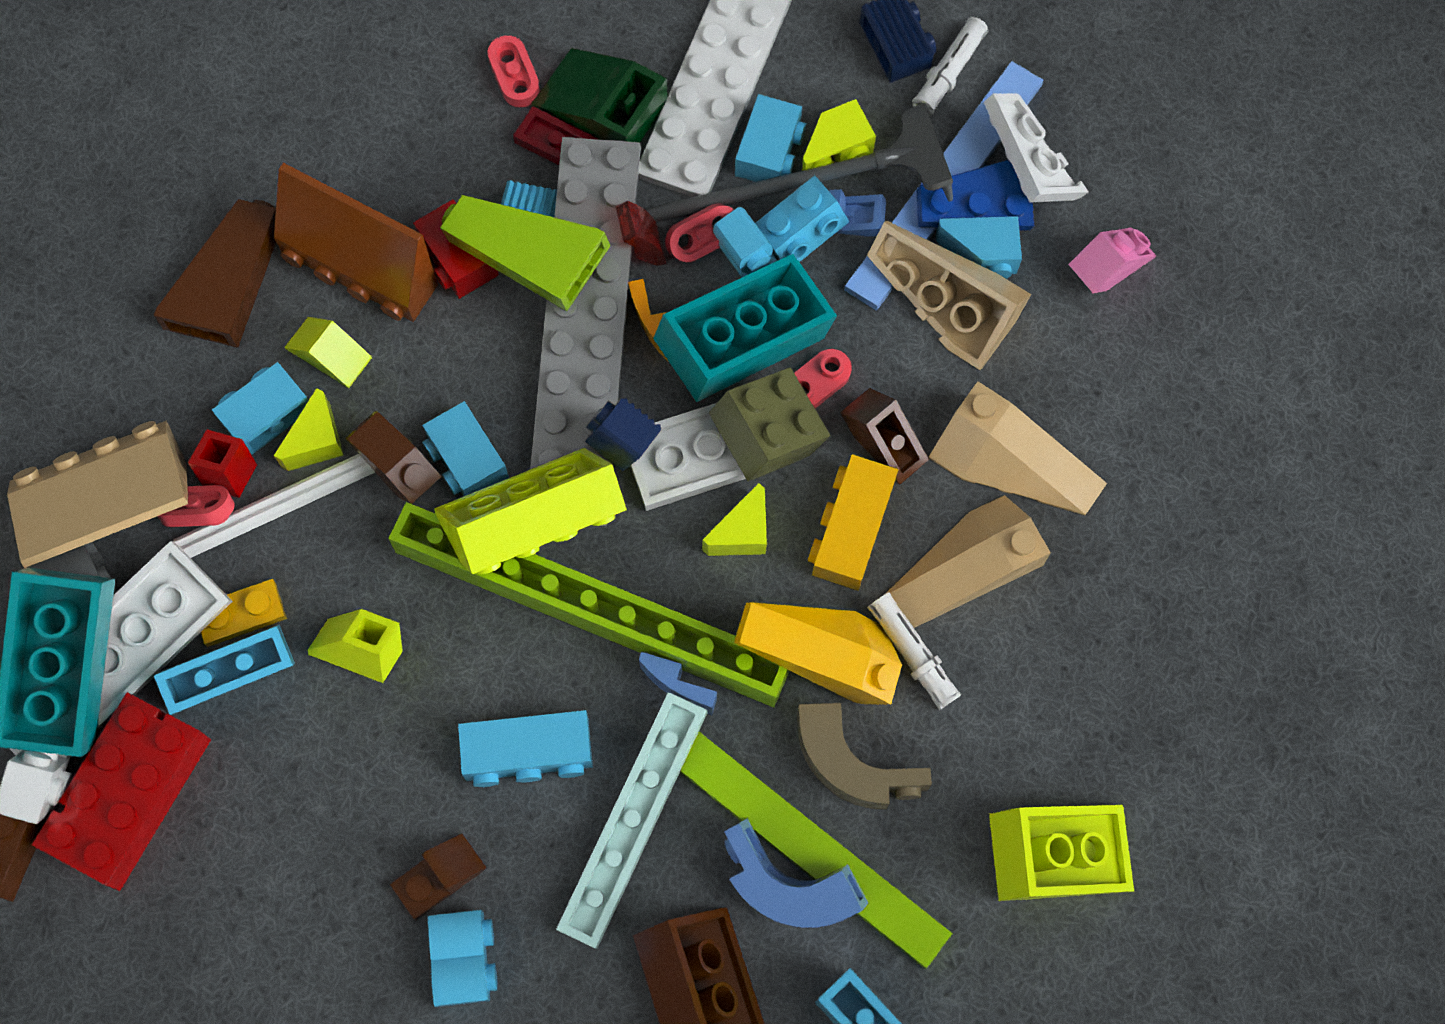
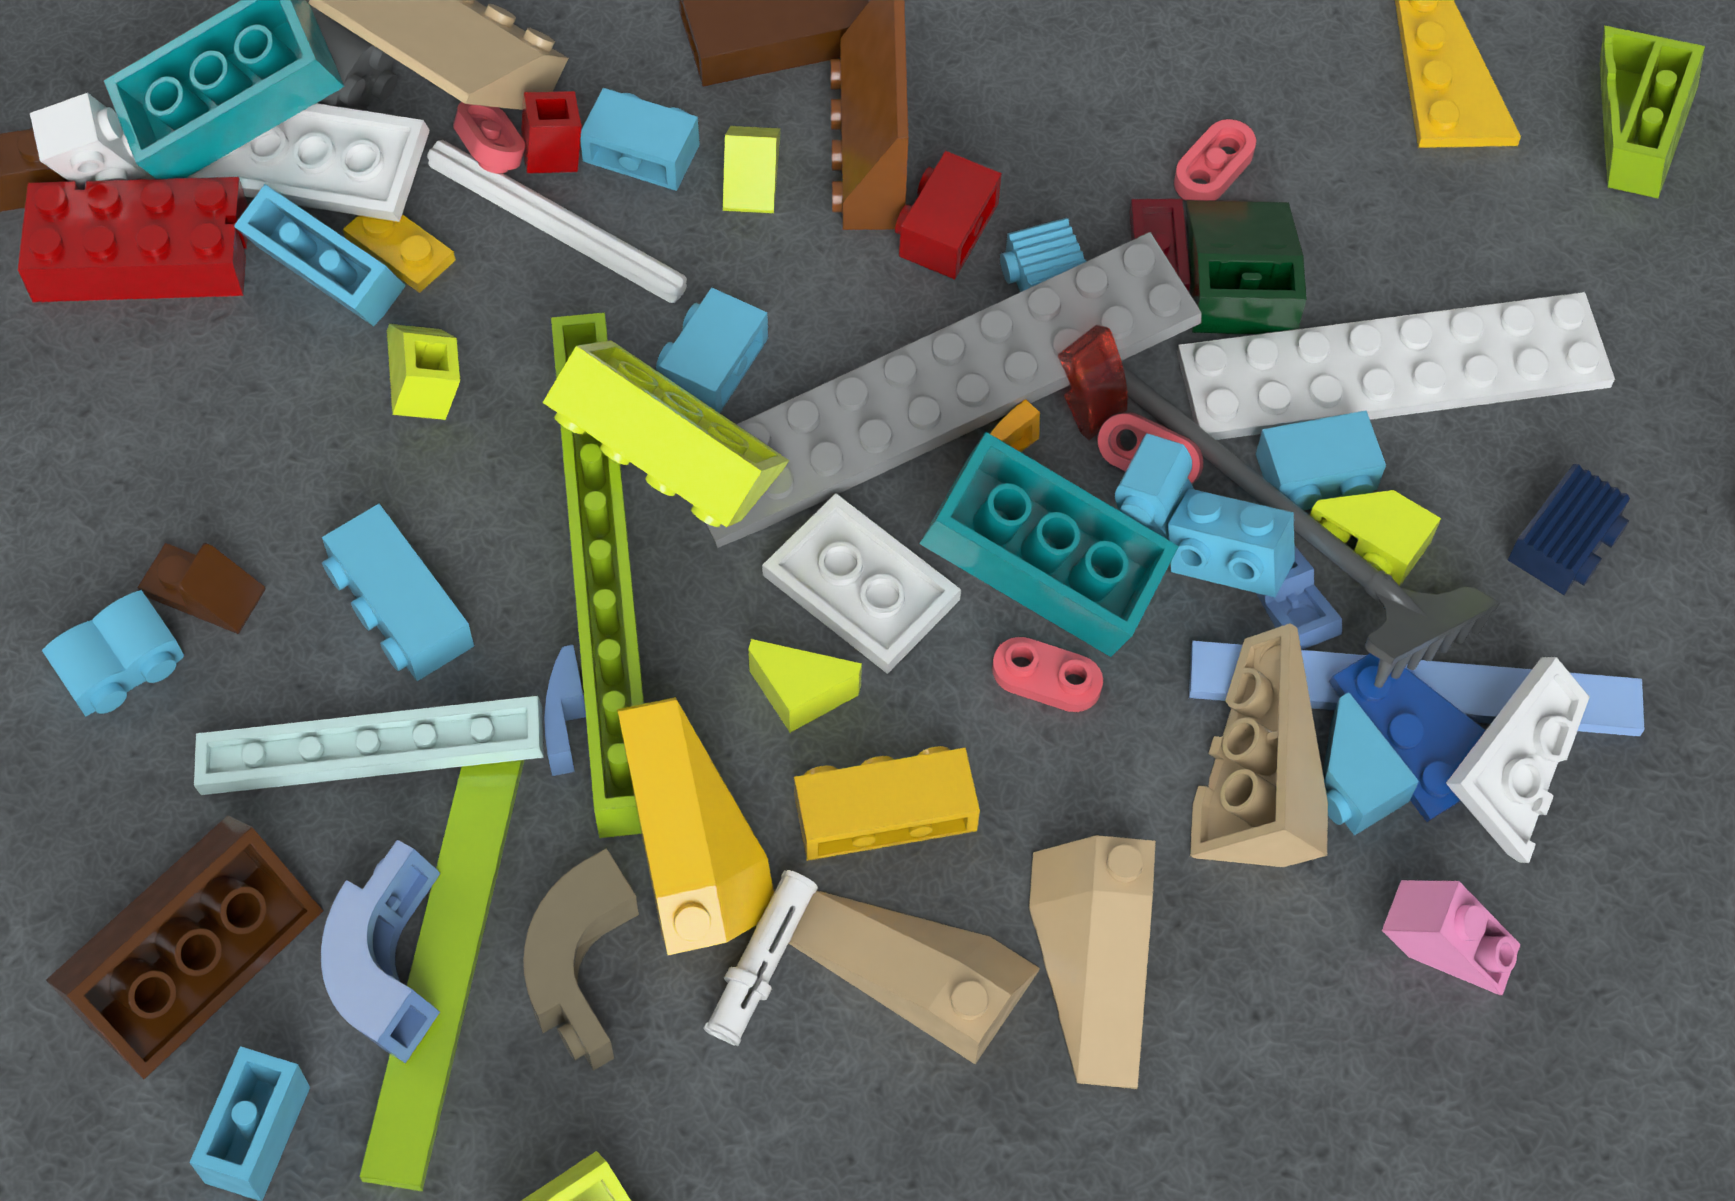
camera: 60 degrees right, 10 degrees down
(311, 436) = (640, 199): neon yellow slope -> none
(393, 458) = (655, 280): reddish brown slope -> none
(529, 247) = (983, 272): lime slope -> none
(621, 433) = (817, 473): dark blue brick -> none
(768, 424) = (944, 636): olive brick -> none
(885, 432) = (1022, 783): reddish brown slope -> none
(942, 77) = (1566, 611): white pin -> none

